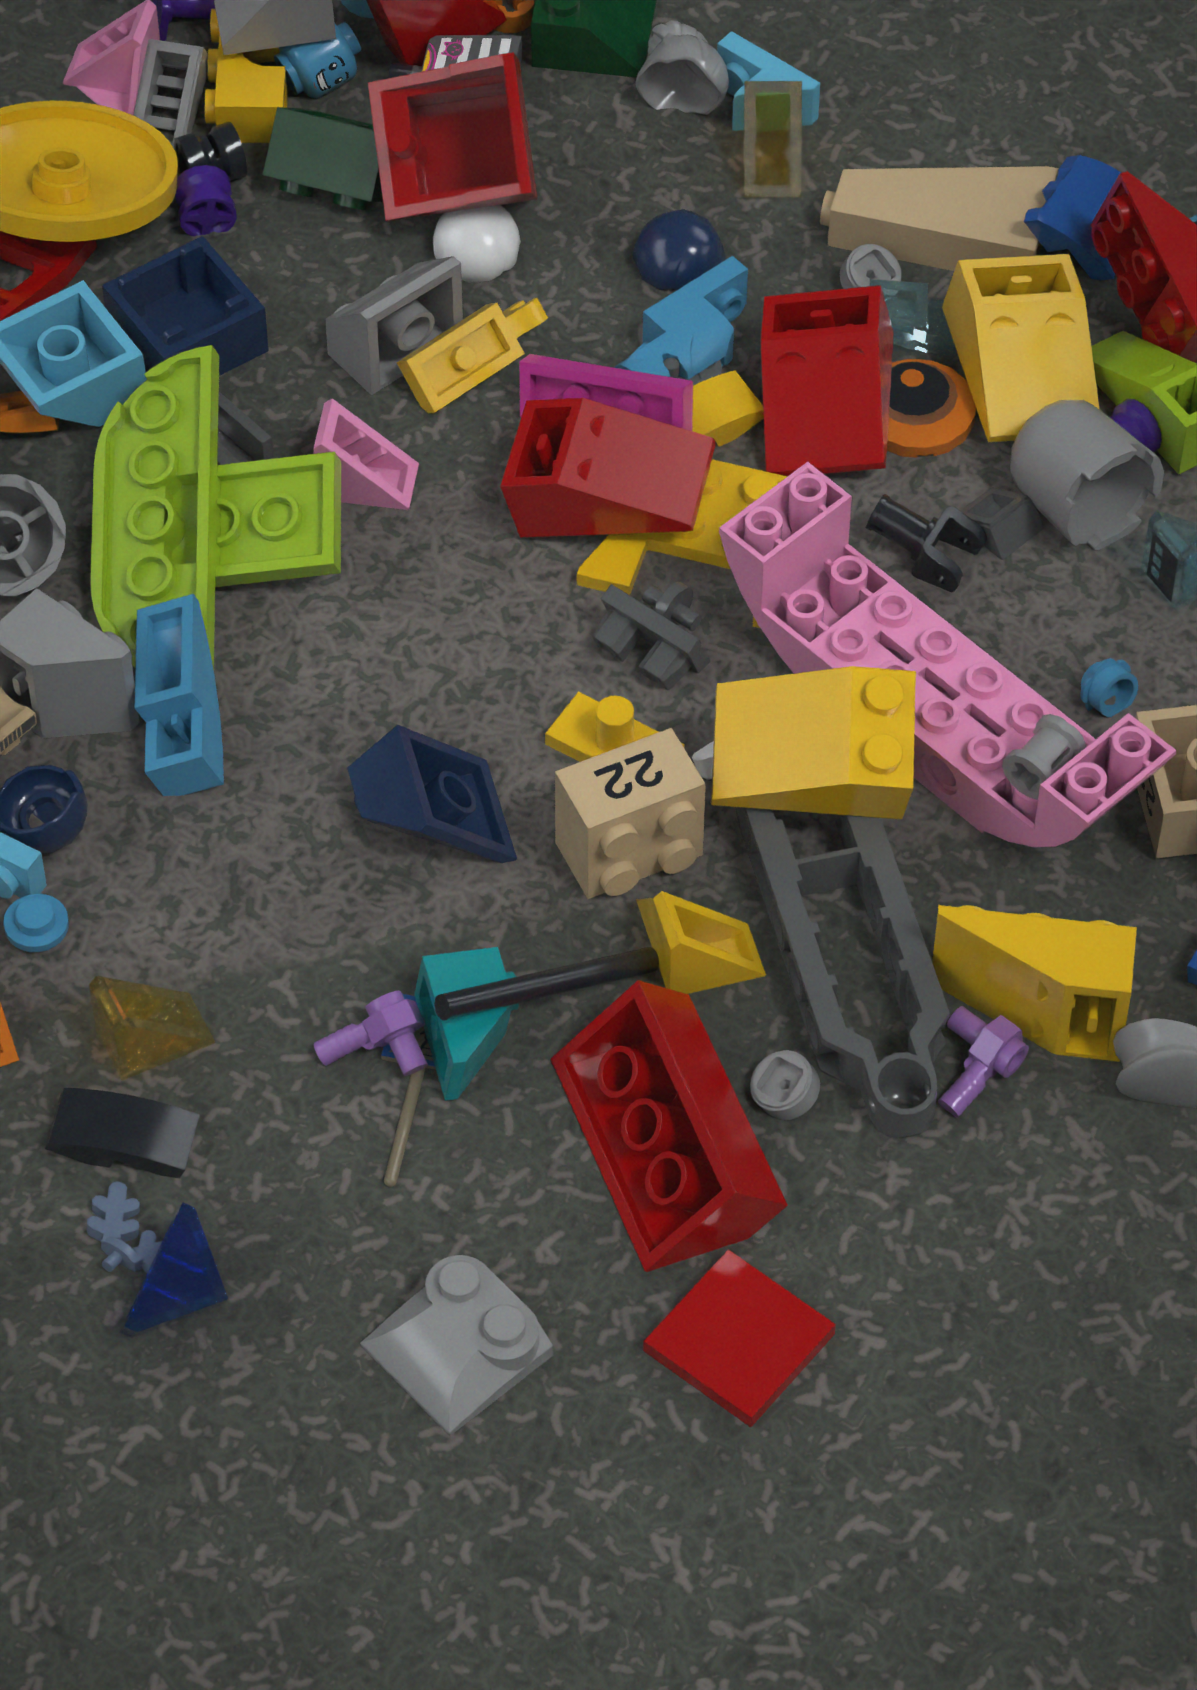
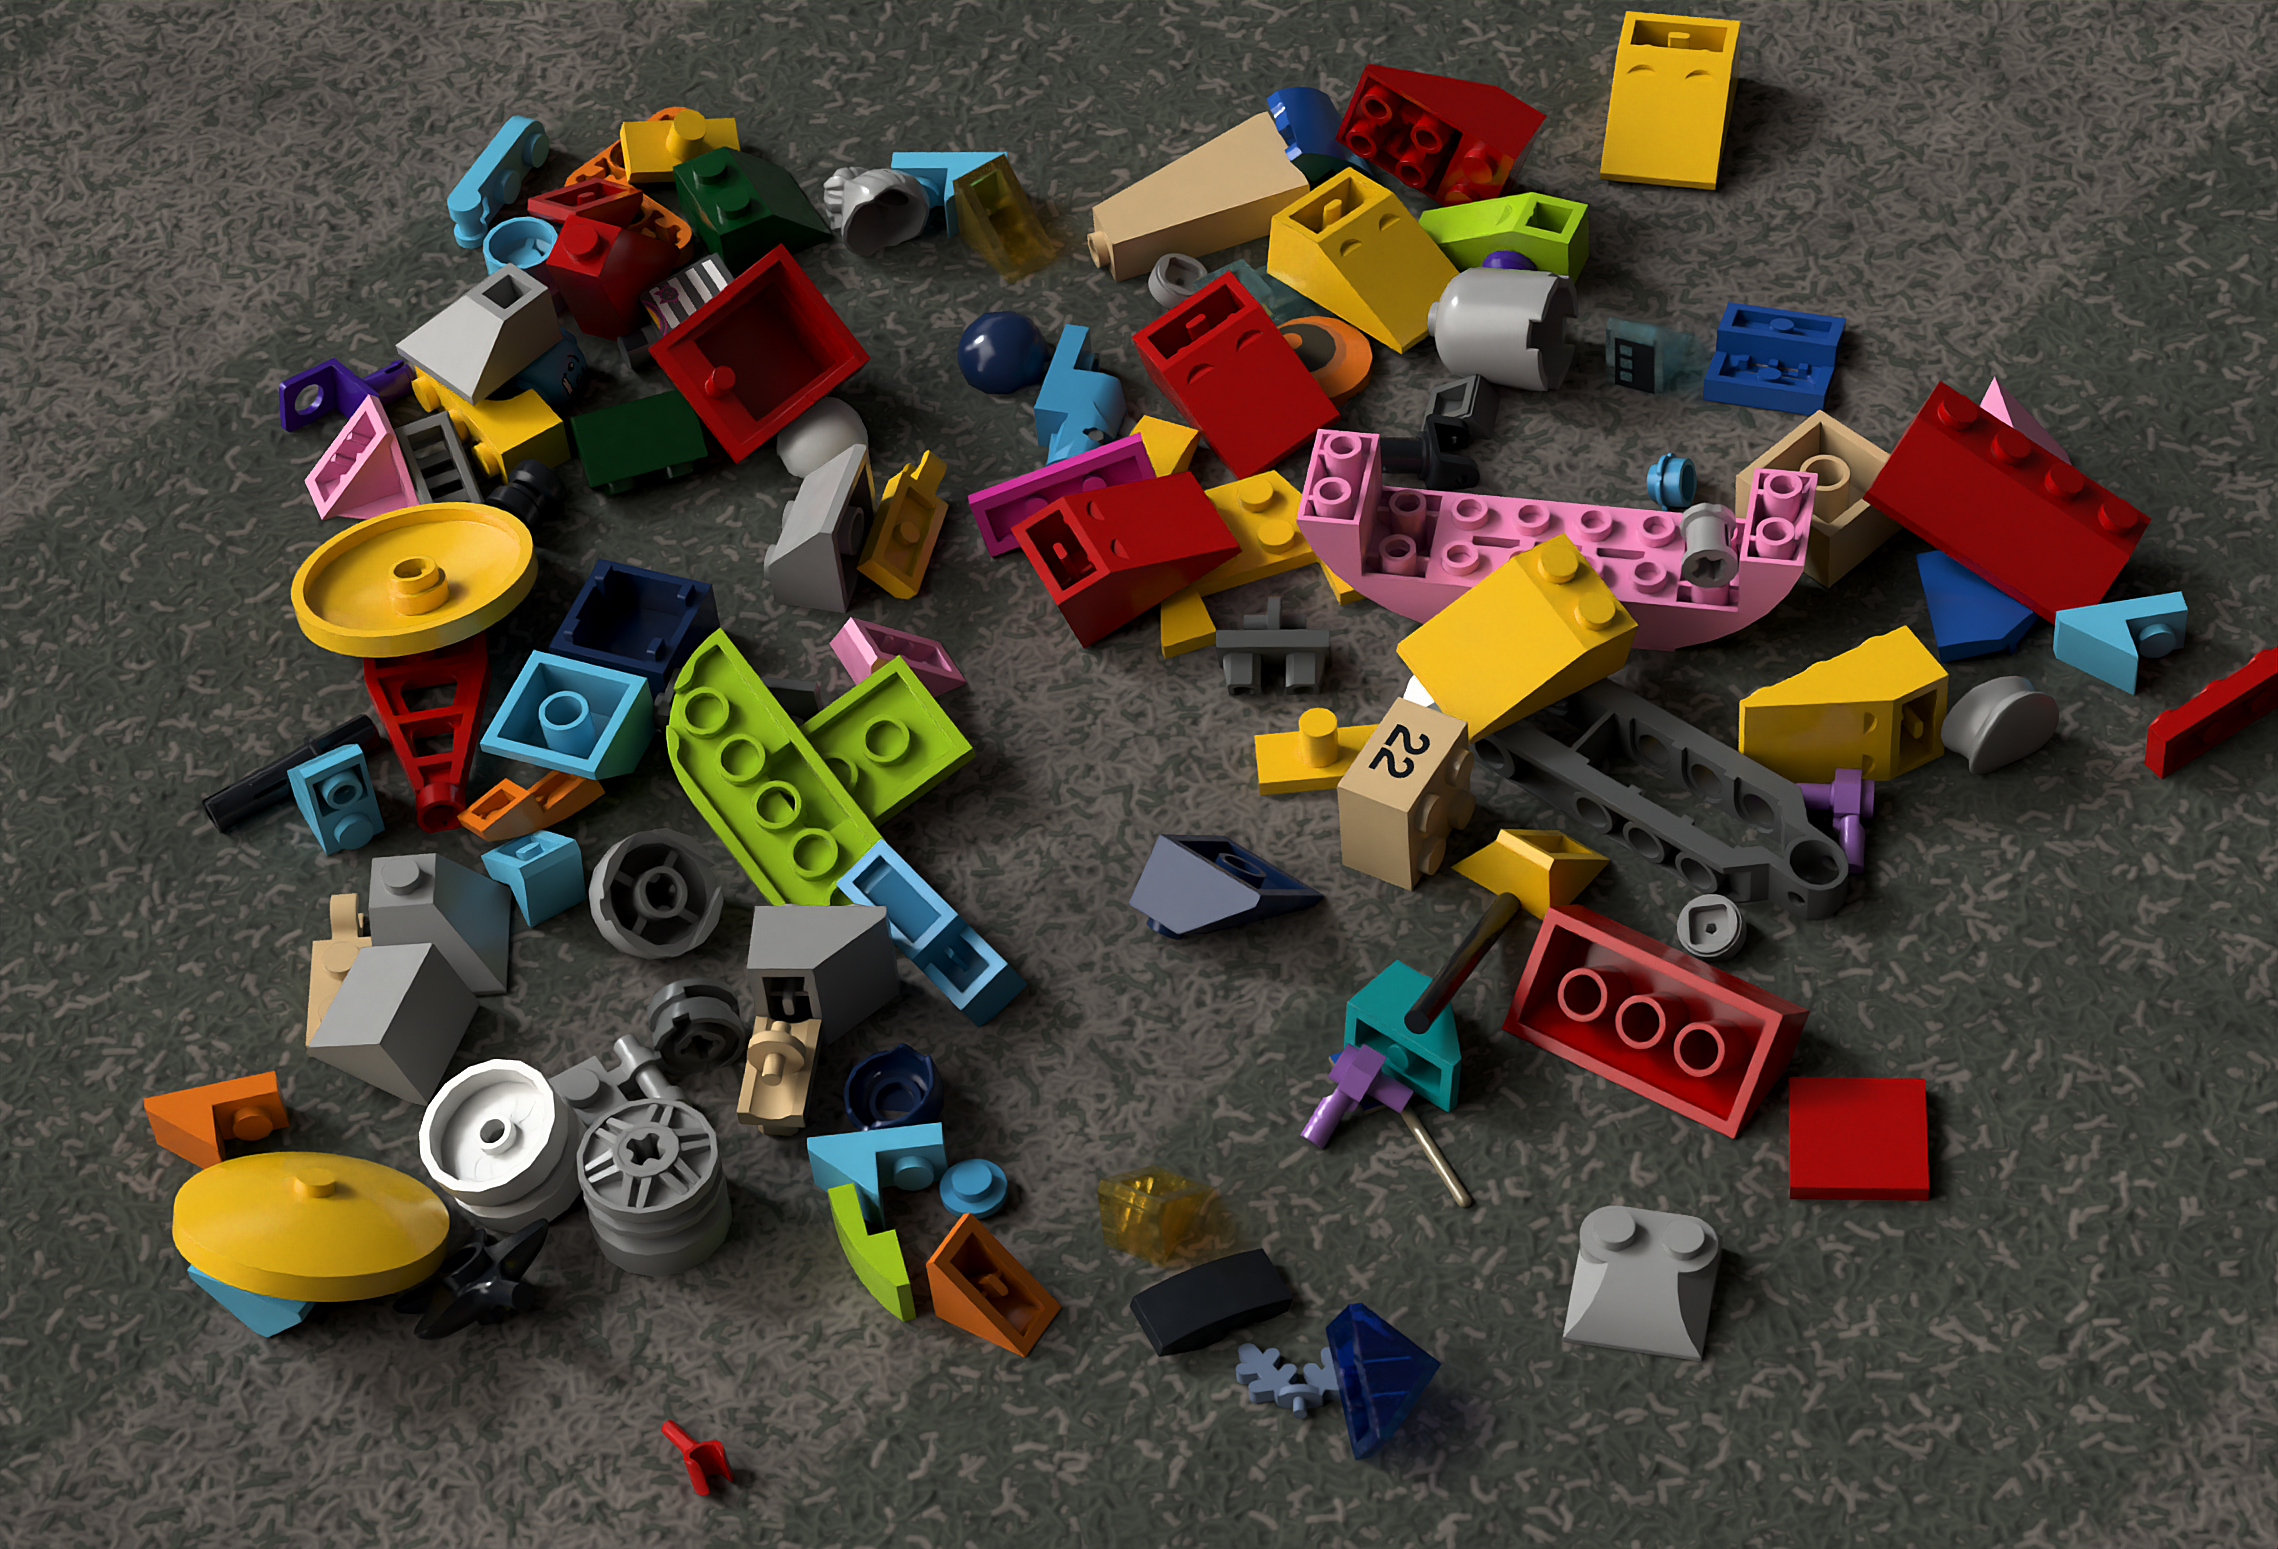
camera: 30 degrees left, 5 degrees down
(205, 201) = (559, 539): dark purple wheel -> none

